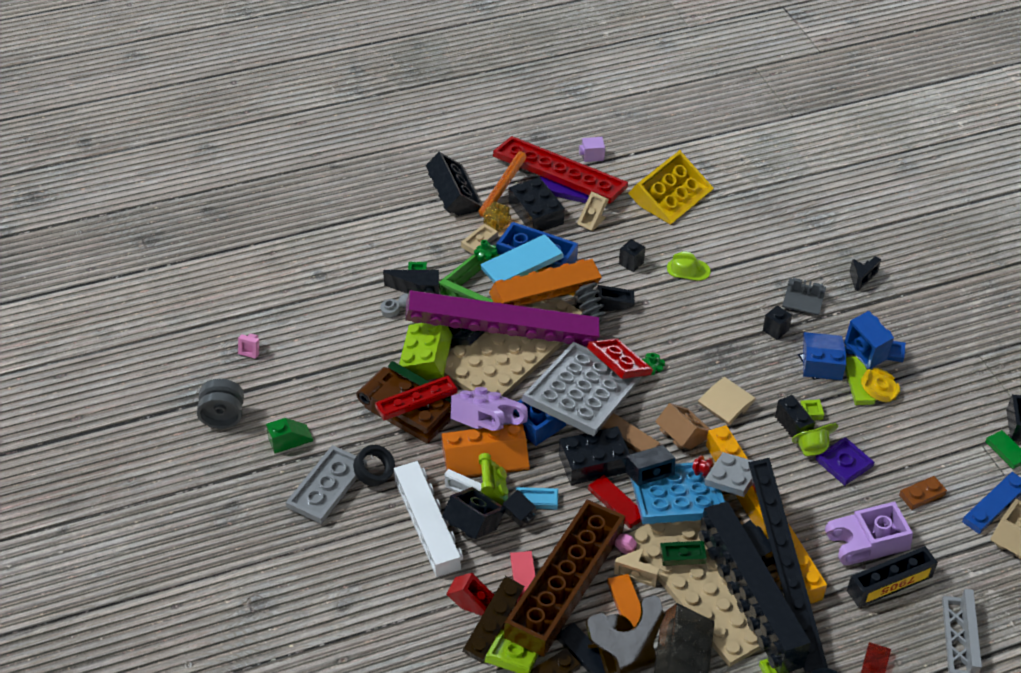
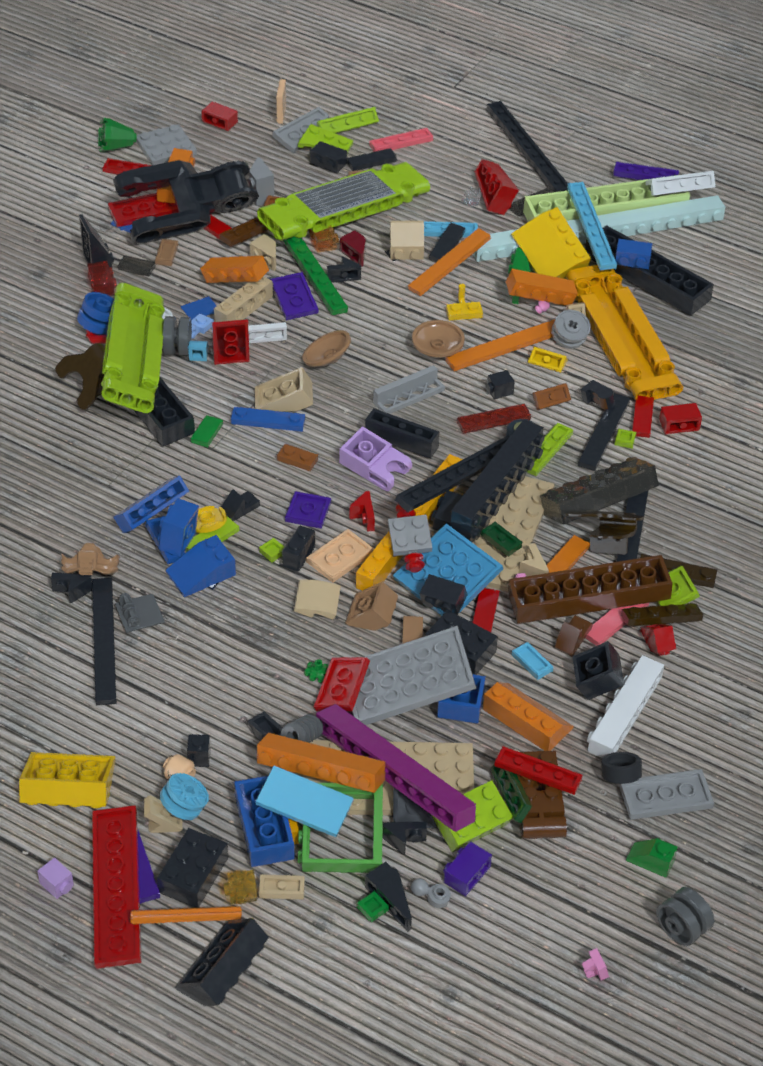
camera: 130 degrees left, 0 degrees up
(391, 329) = (467, 868): none -> dark purple brick
(459, 482) = (573, 704): white tile -> none
(485, 250) = (309, 850): green plant -> none
(486, 409) = (499, 717): lavender brick -> none
(494, 479) = (557, 678): lime plate -> none
(520, 508) = (560, 654): black brick -> none
(534, 539) = (572, 635): none -> reddish brown slope
(604, 219) = (184, 796): none -> medium azure wheel
(623, 236) = (178, 764): none -> light nougat head
(688, 266) = (170, 712): lime piece -> none
(770, 442) = (339, 555): none -> light nougat tile
(777, 322) = (195, 608): black brick -> none
(792, 267) = (104, 641): none -> black tile
(810, 494) = (363, 509): none -> red slope
(815, 441) = (310, 520): lime piece -> none
(885, 280) = (89, 560): none -> medium nougat piece
(885, 418) = (239, 505): none -> black slope
(923, 354) = (151, 504): none -> blue brick

